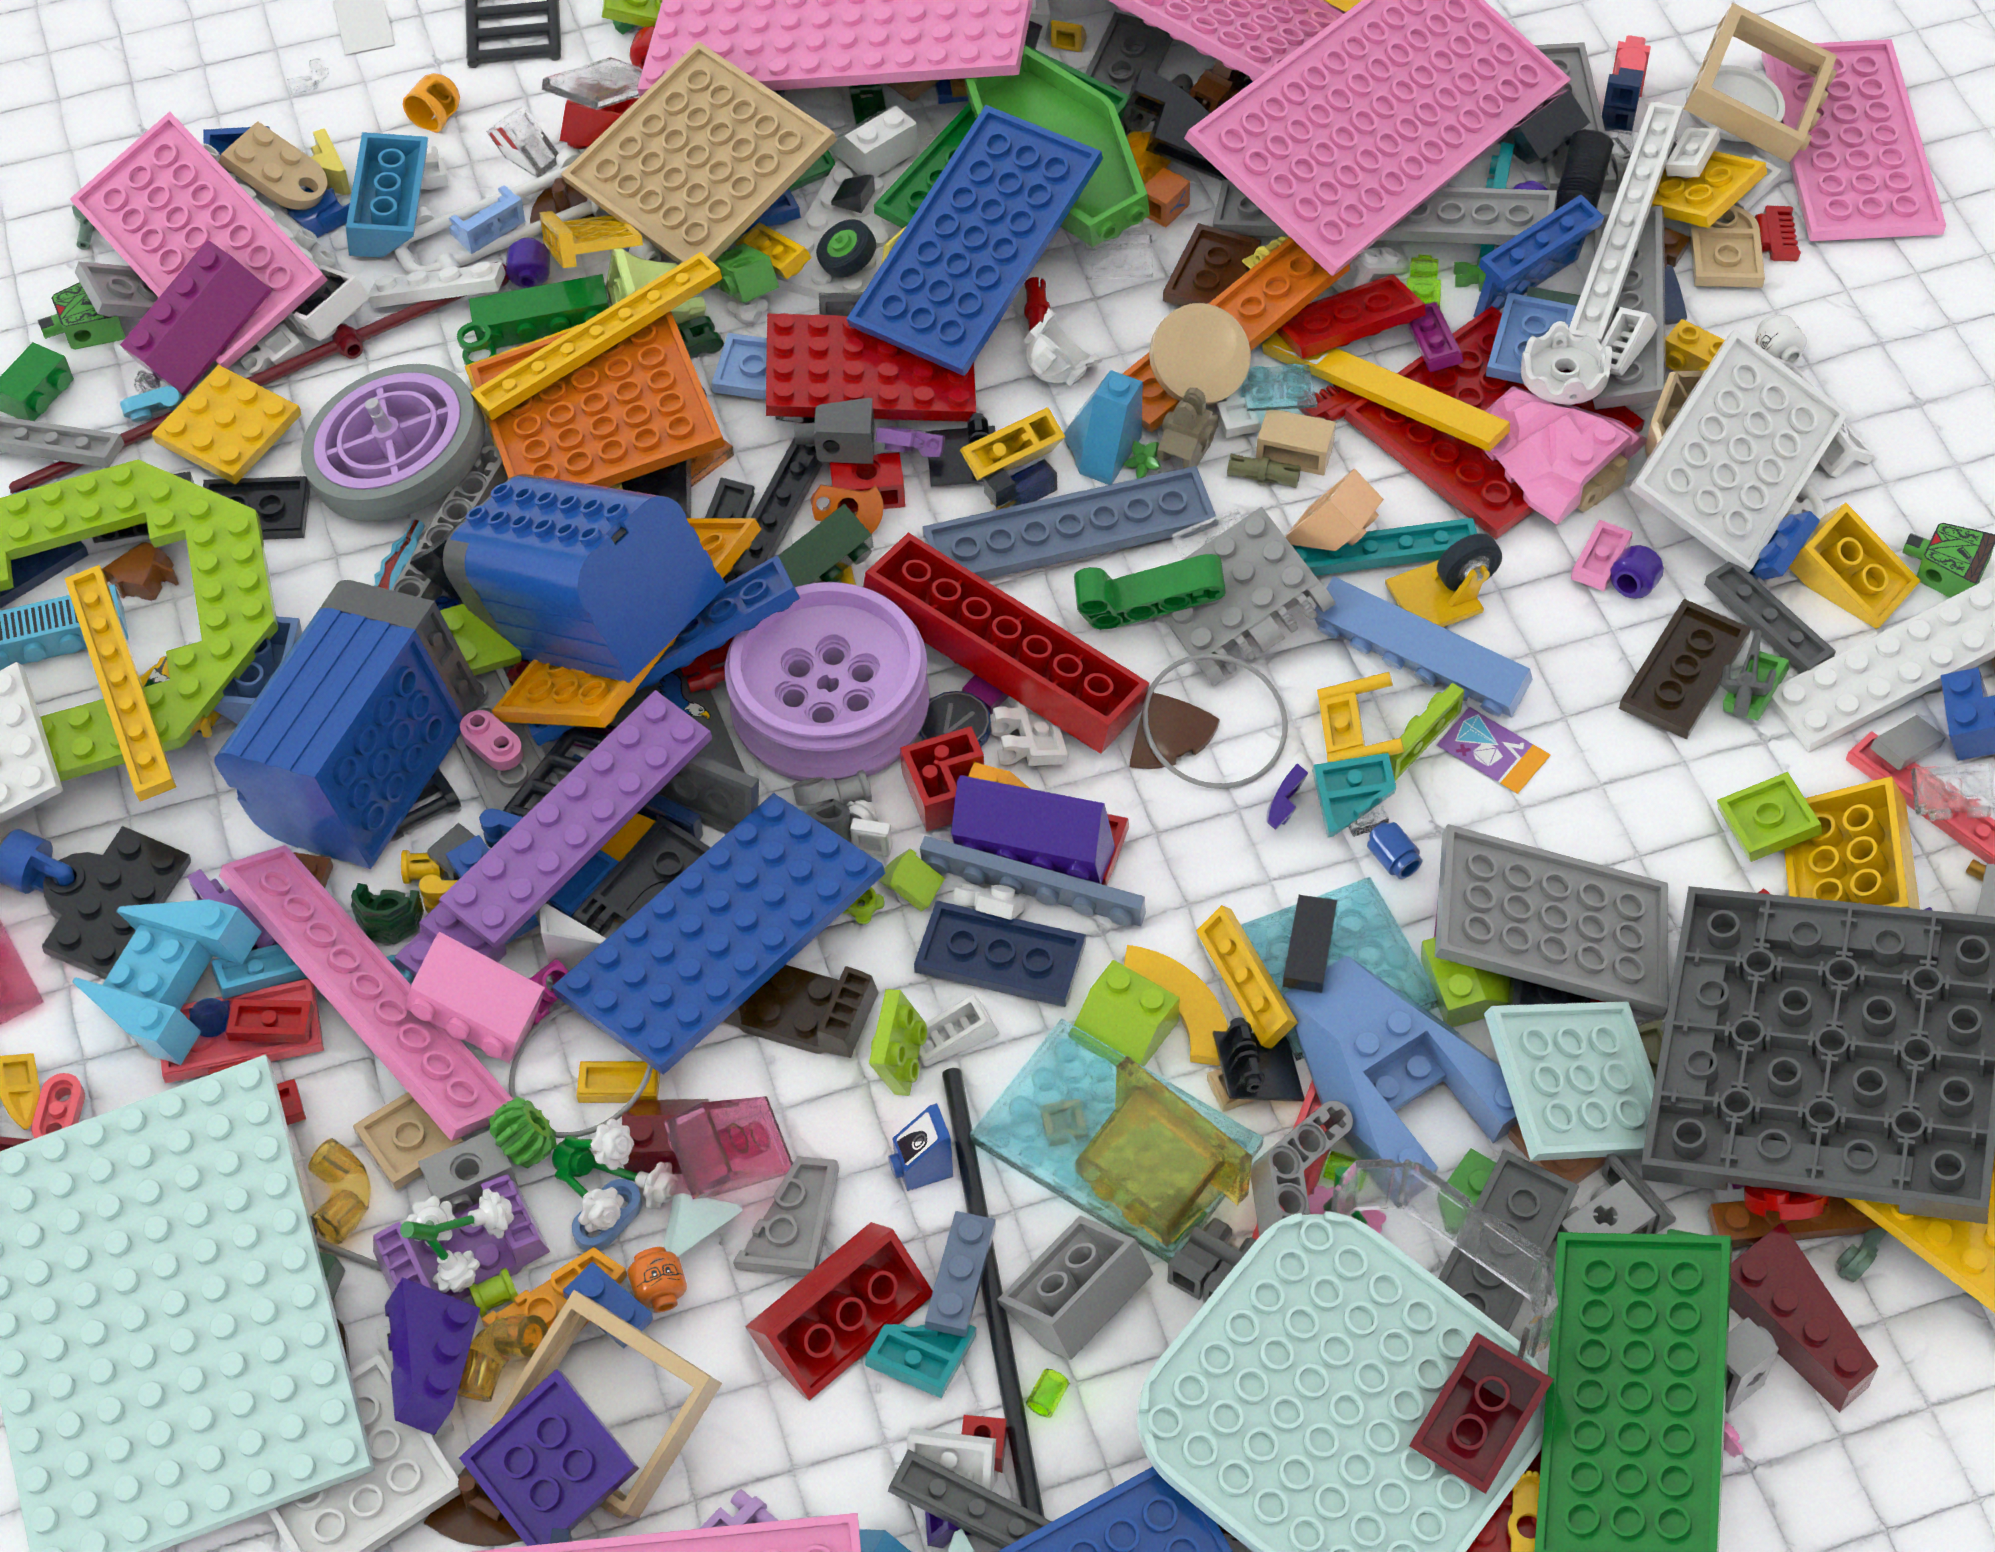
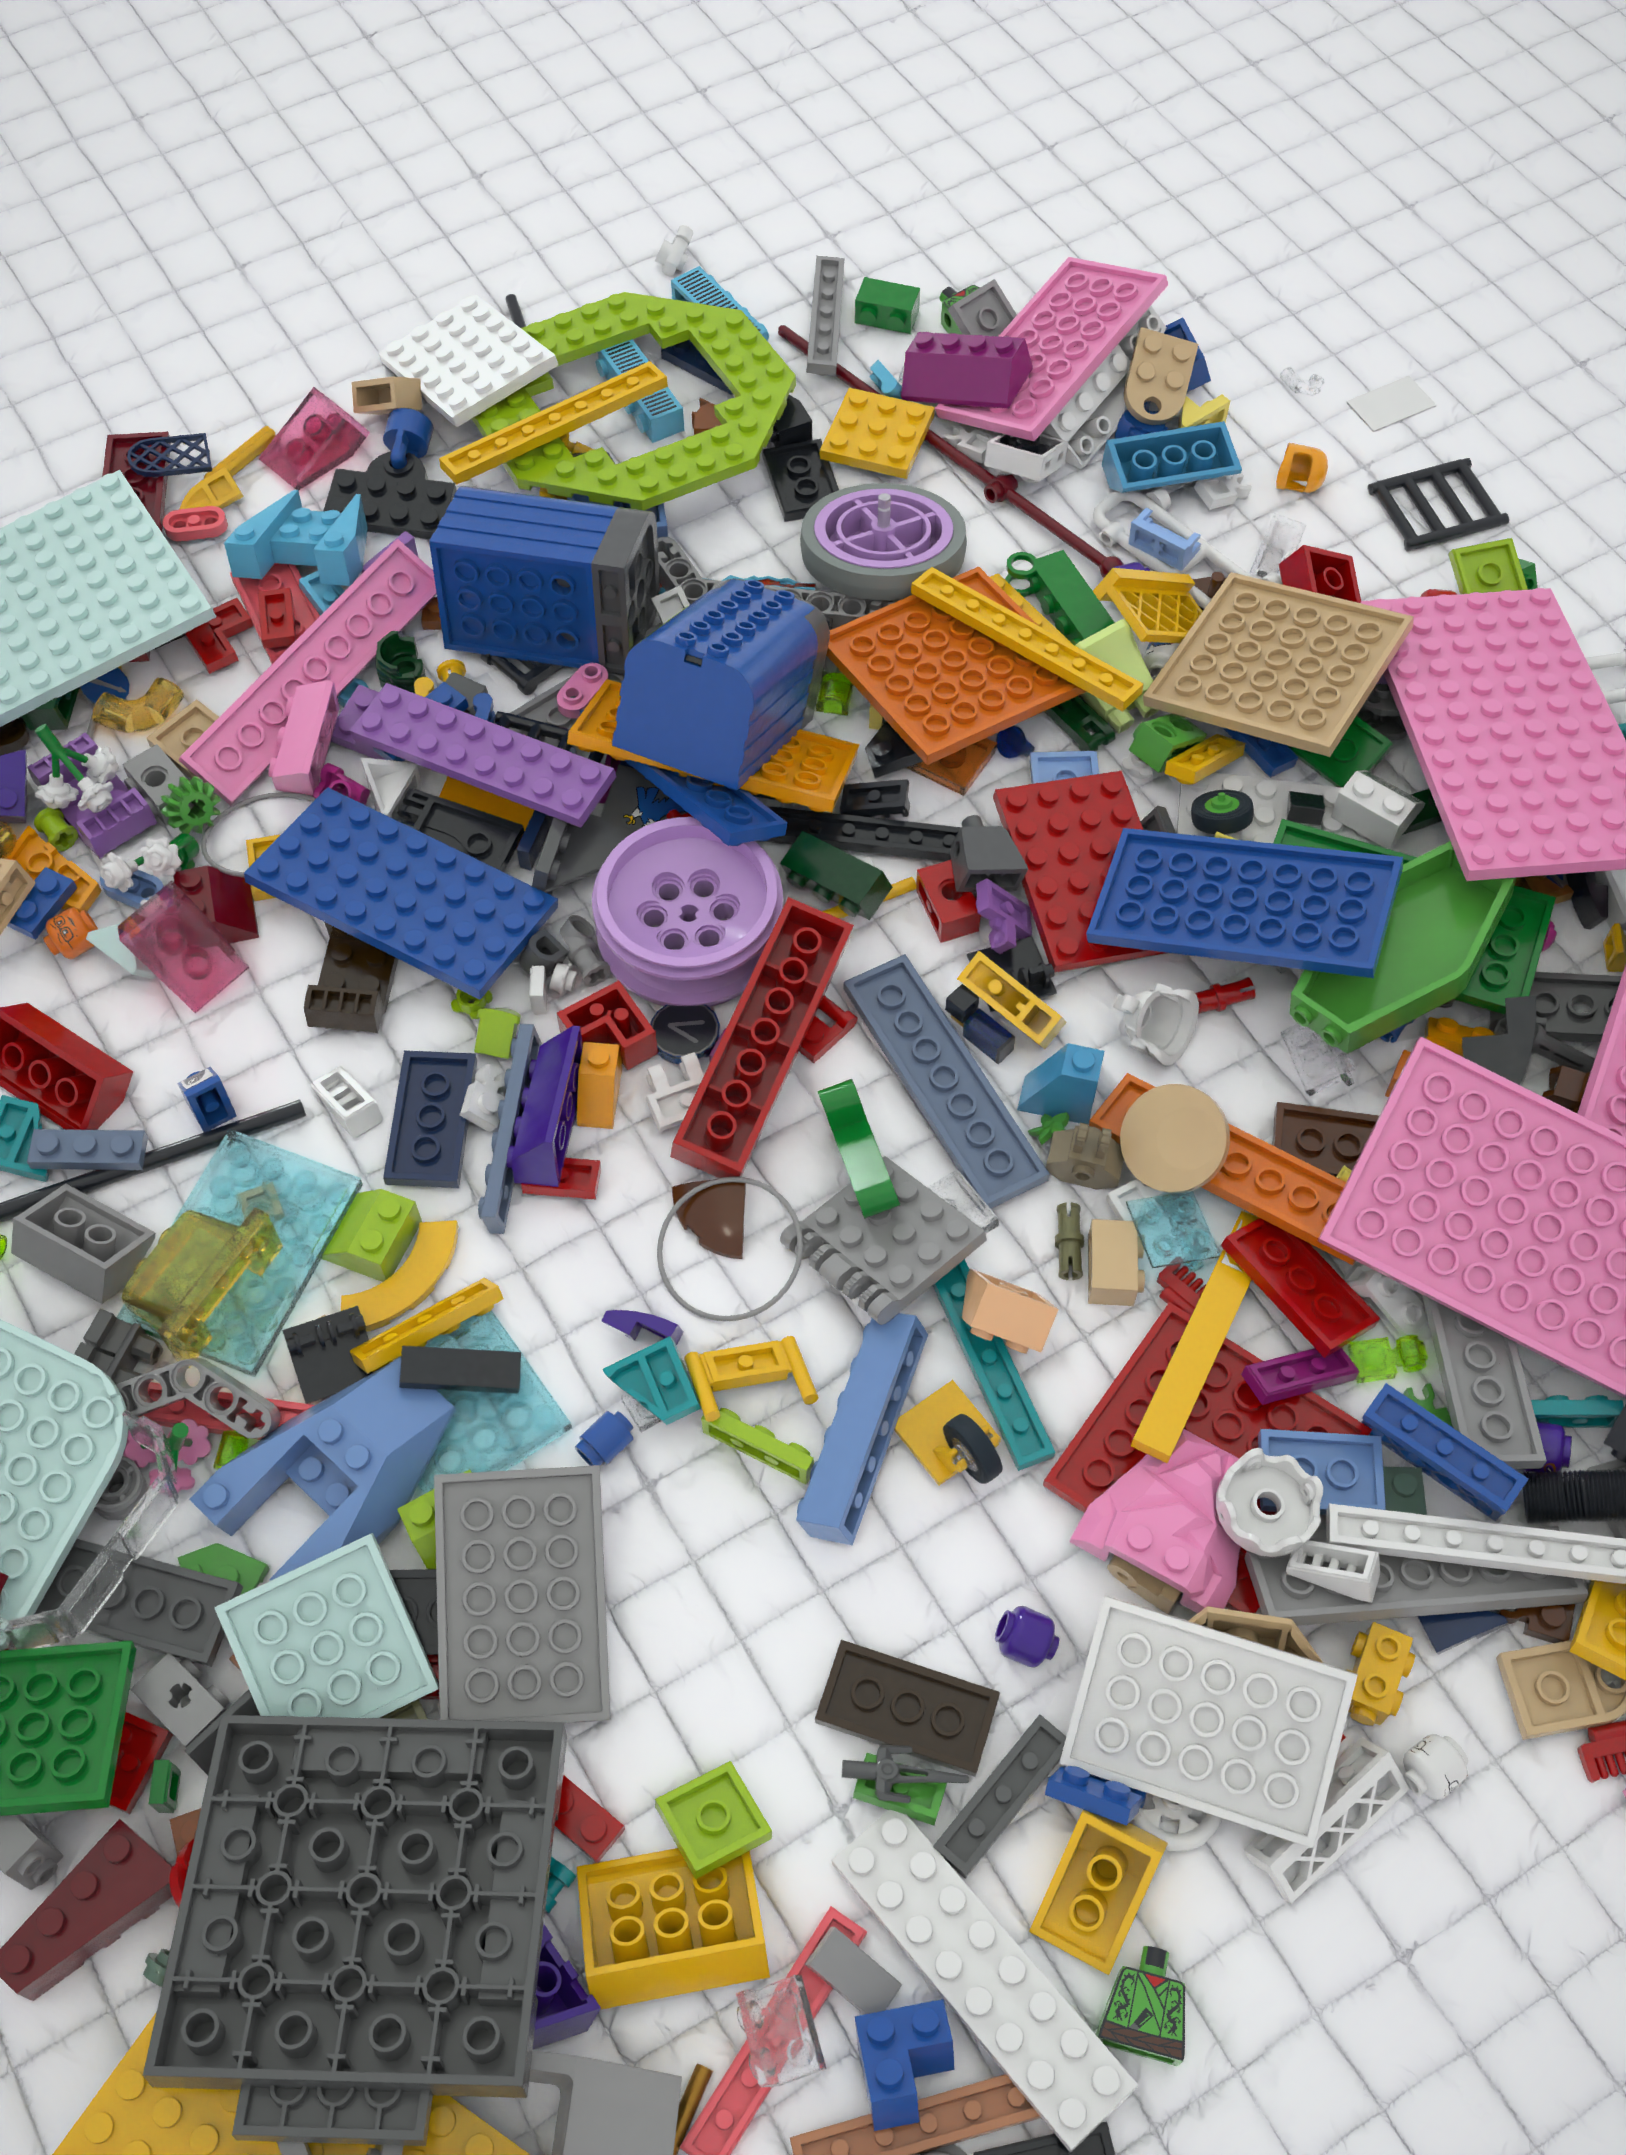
camera: 75 degrees right, 5 degrees up
(210, 1016) = (278, 578): clear blue plate -> none
(435, 285) = (1078, 527): white plate -> none
(582, 883) = (451, 789): blue tile -> none
(596, 83) = (1355, 568): clear tile -> none
(795, 1225) = (132, 1020): light grey wing -> none
(869, 504) = (916, 903): orange piece -> none
(897, 1043) = (304, 1047): lime plate -> none
(1493, 750) = (761, 1525): sticker -> none
(1599, 554) = (1046, 1594): bright pink plate -> none

